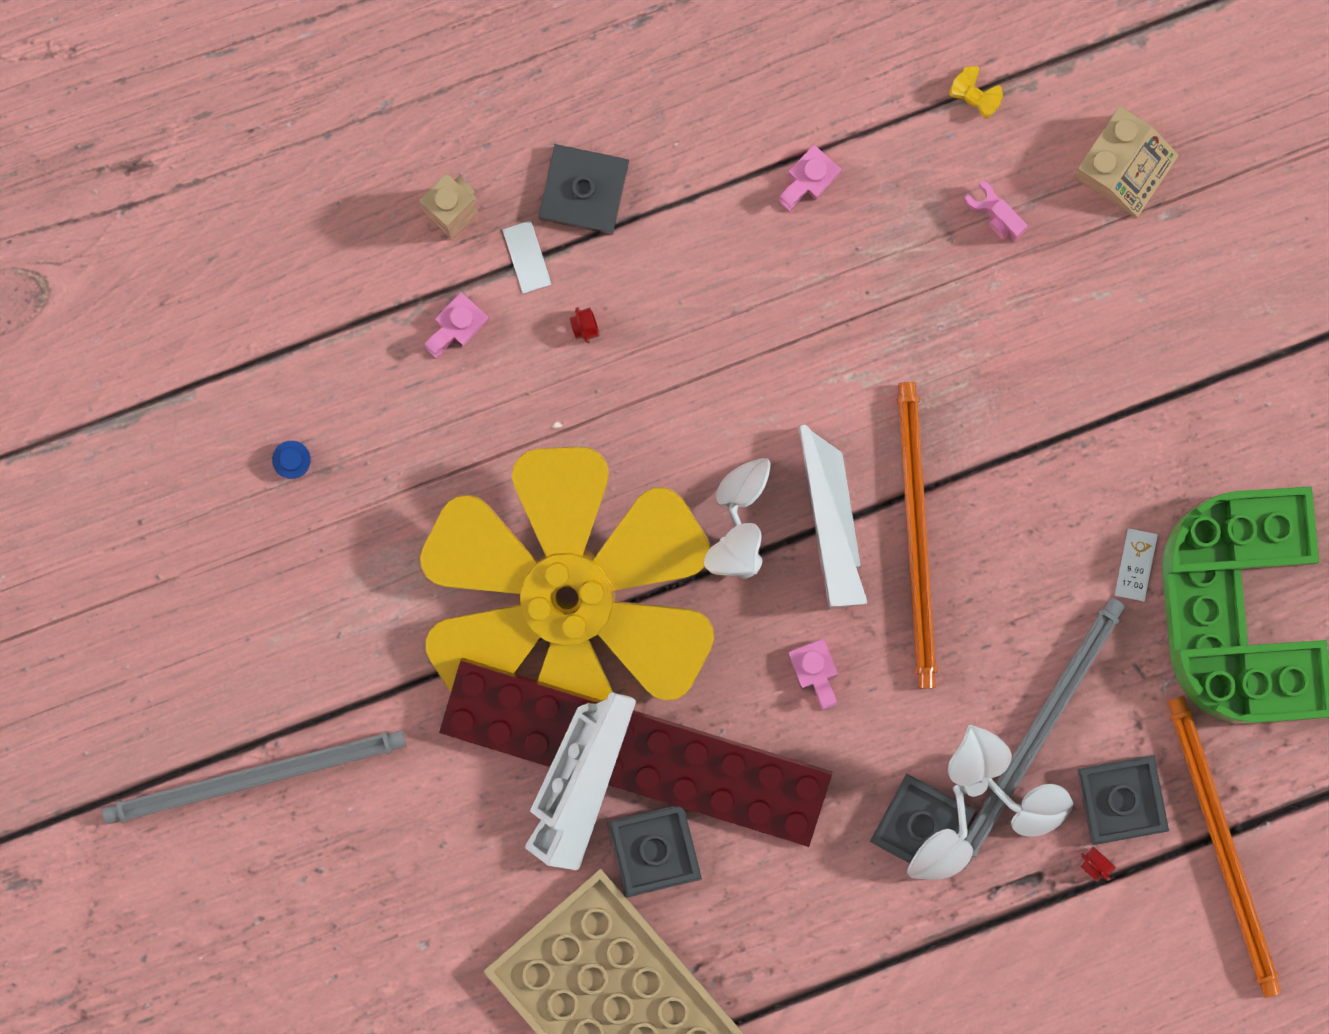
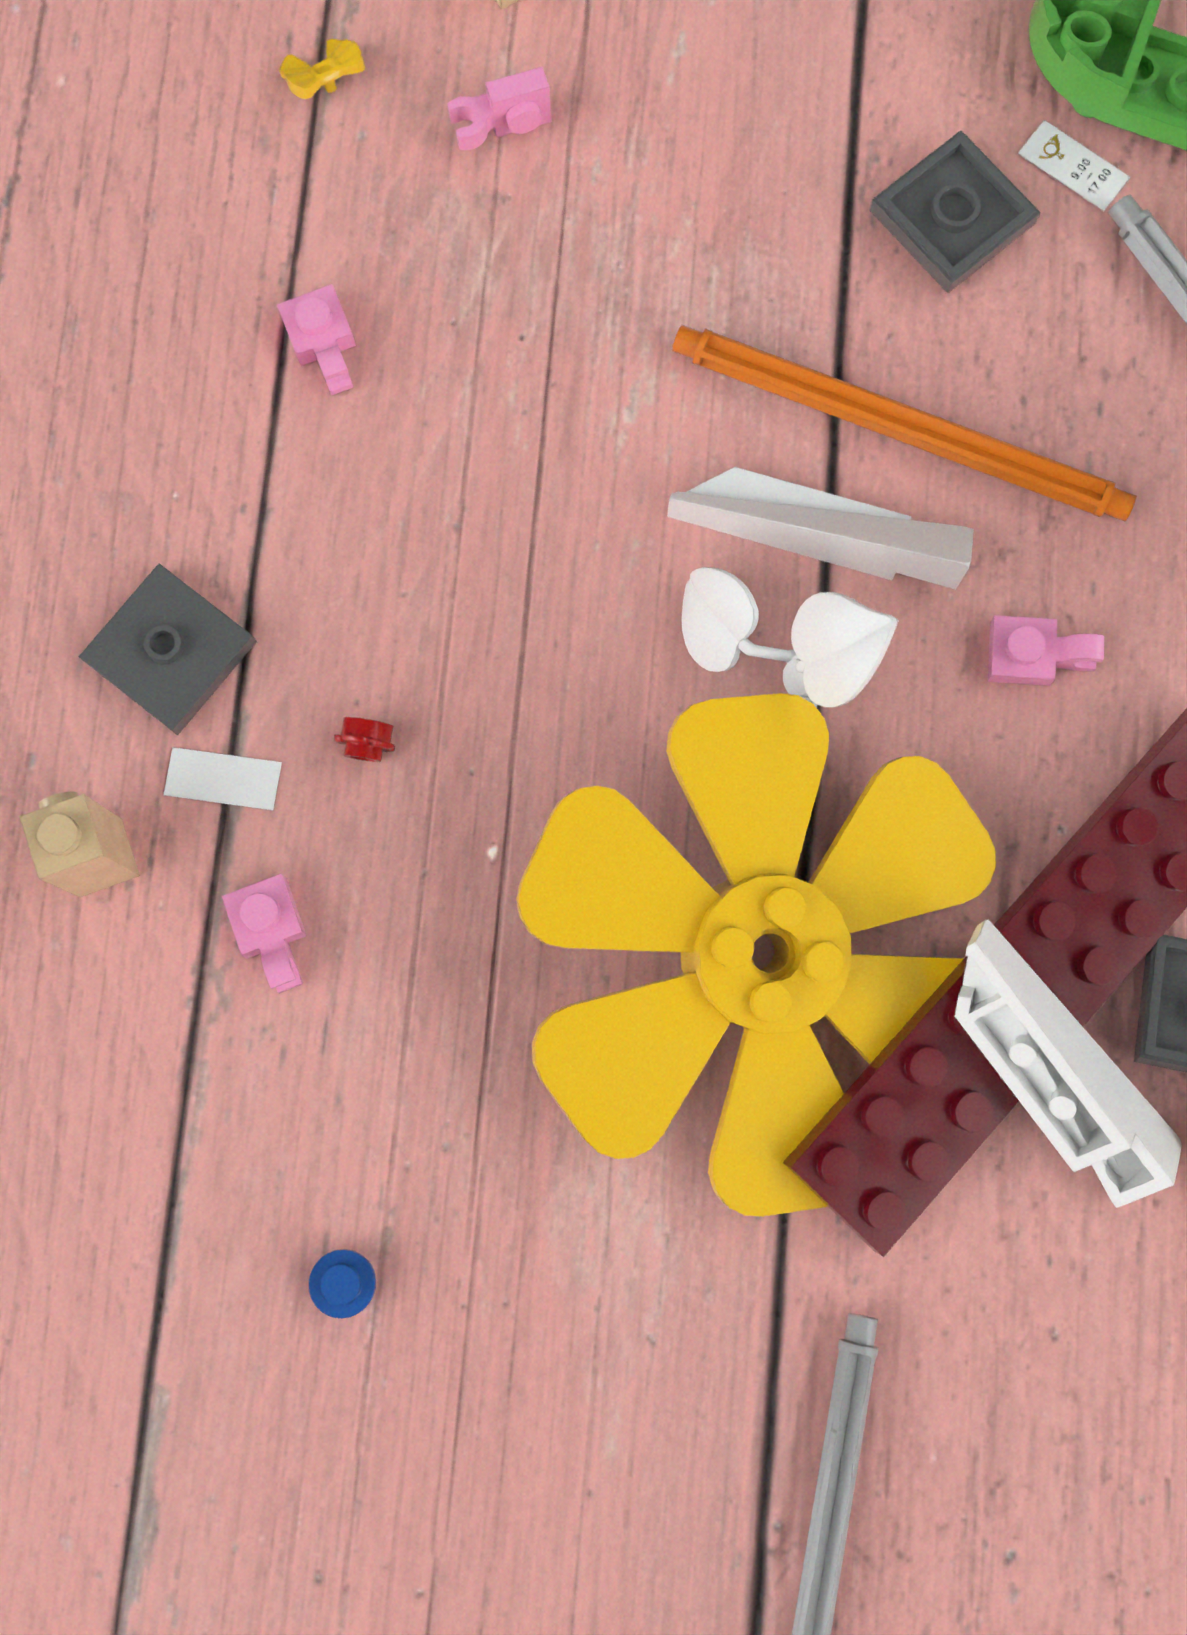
camera: 65 degrees left, 5 degrees down
(1064, 506) = (954, 211): none -> dark grey plate

